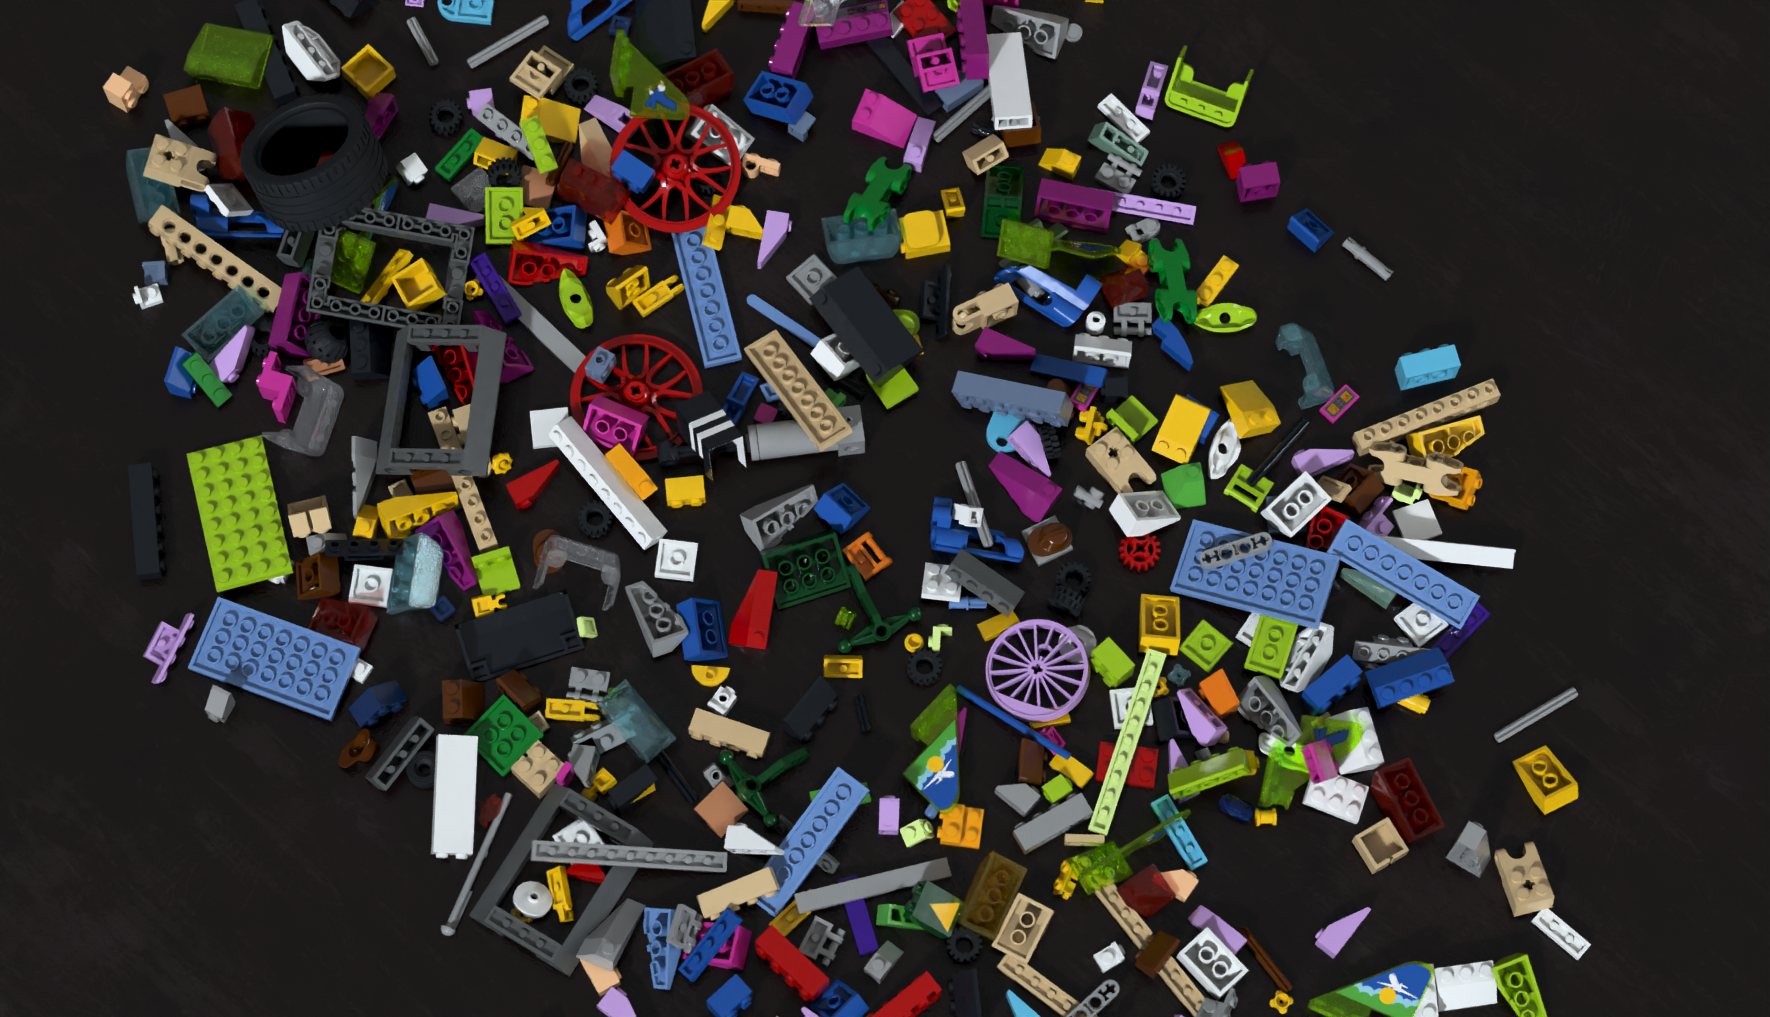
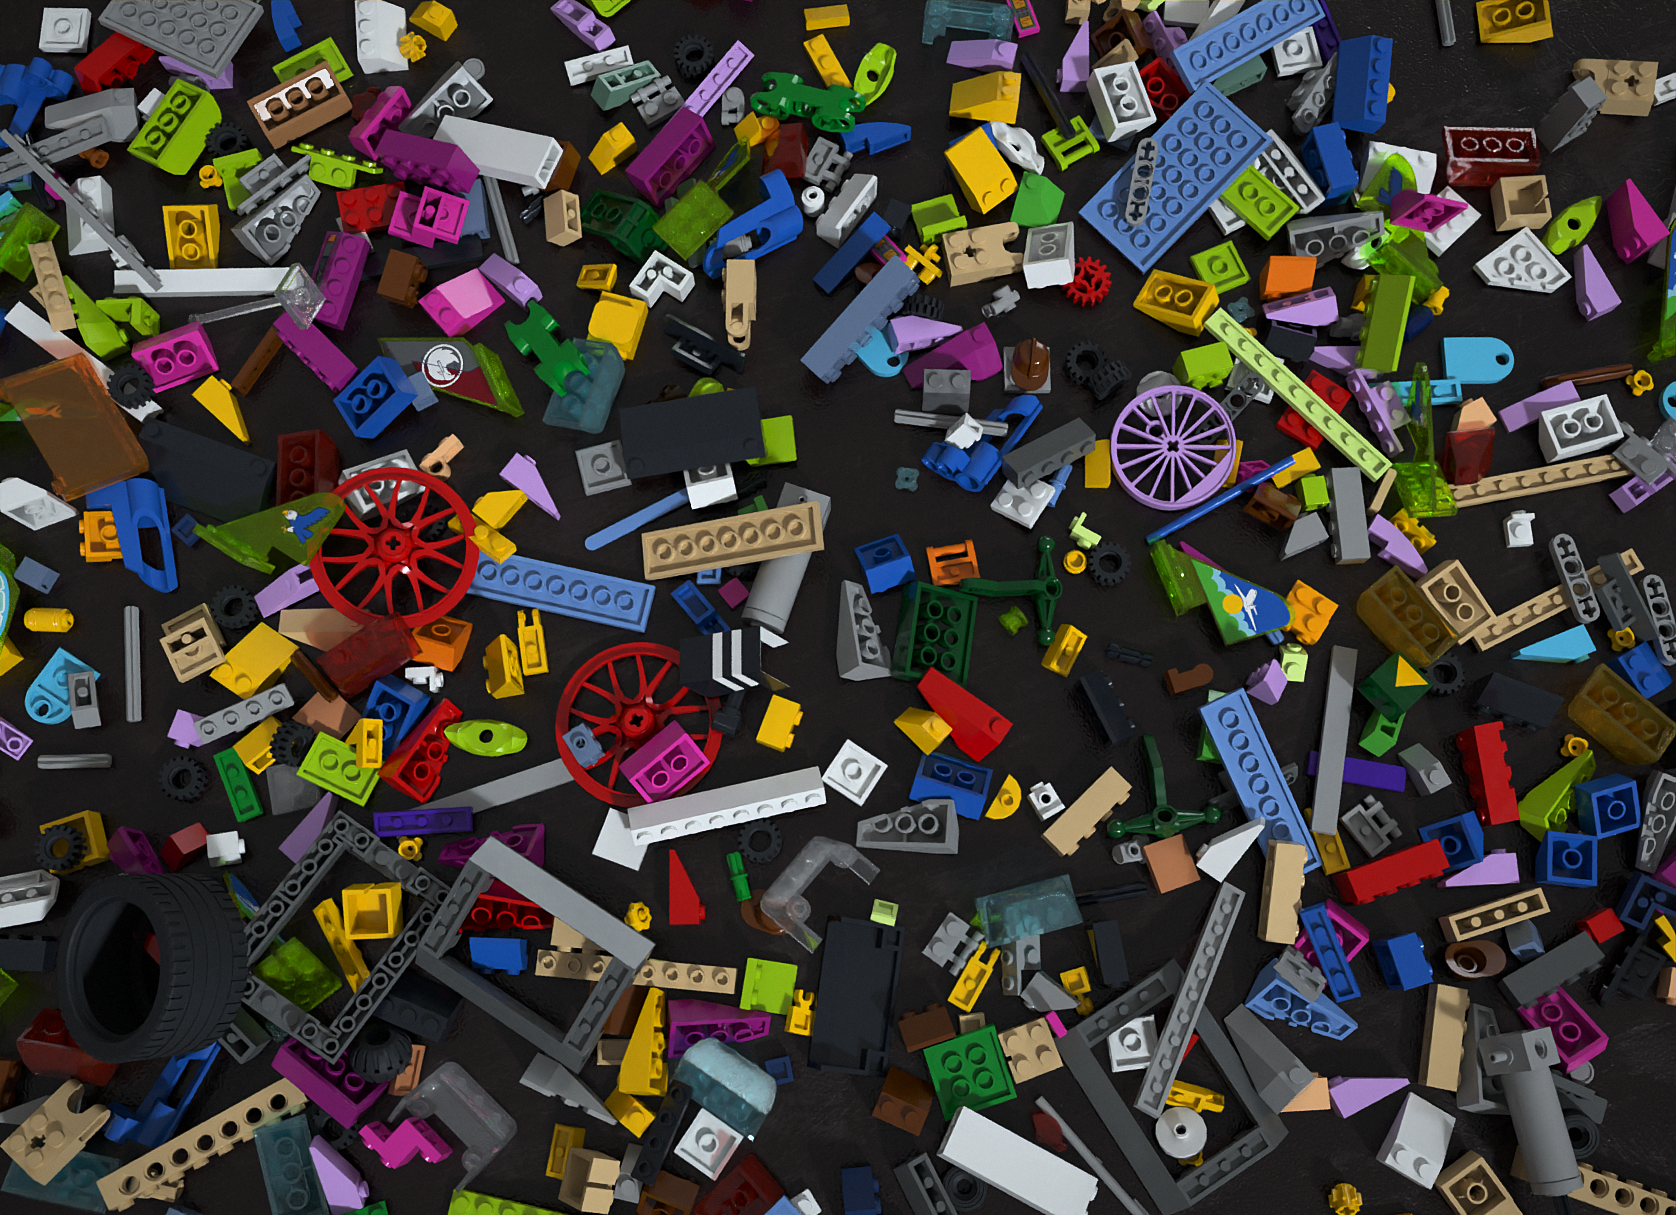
camera: 60 degrees left, 5 degrees up
(228, 200) = (137, 1090): white plate -> none
(328, 489) = (563, 1138): none -> yellow slope
(357, 55) = (47, 842): none -> black tyre
(401, 142) = (184, 846): none -> red slope
(467, 24) = (84, 700): none -> light grey slope
(538, 145) = (280, 687): lime plate -> none
(562, 517) = (738, 876): none -> green axle
(631, 471) = (728, 772): light orange slope -> none
(633, 172) = (377, 594): blue brick -> none
(731, 592) = (923, 728): none -> yellow slope
(830, 141) = (456, 369): none -> piece
(868, 767) = (1189, 680): none -> dark orange leg
(876, 69) = (402, 279): none -> reddish brown piece
(918, 488) = (912, 474): none -> clear light blue plate
(976, 243) = (661, 275): none -> white brick
(995, 487) = (946, 391): none -> flat silver slope
(1000, 347) = (787, 310): magenta slope -> none
(1046, 867) = (1395, 547): none -> lavender slope
(1090, 700) = (1231, 411): none -> dark grey beam
(1152, 813) = (1382, 410): none -> lavender bracket
(1156, 954) = (1552, 475): reddish brown slope -> none
(1233, 867) = (1475, 359): none -> medium azure tile
(1256, 261) = (826, 17): none -> yellow slope
(1286, 391) = (983, 55): none -> lavender slope
(1331, 871) = (1522, 264): none -> white plate
(1371, 891) = (1559, 235): none -> lime piece
(1400, 945) = (1633, 223): none -> dark pink slope

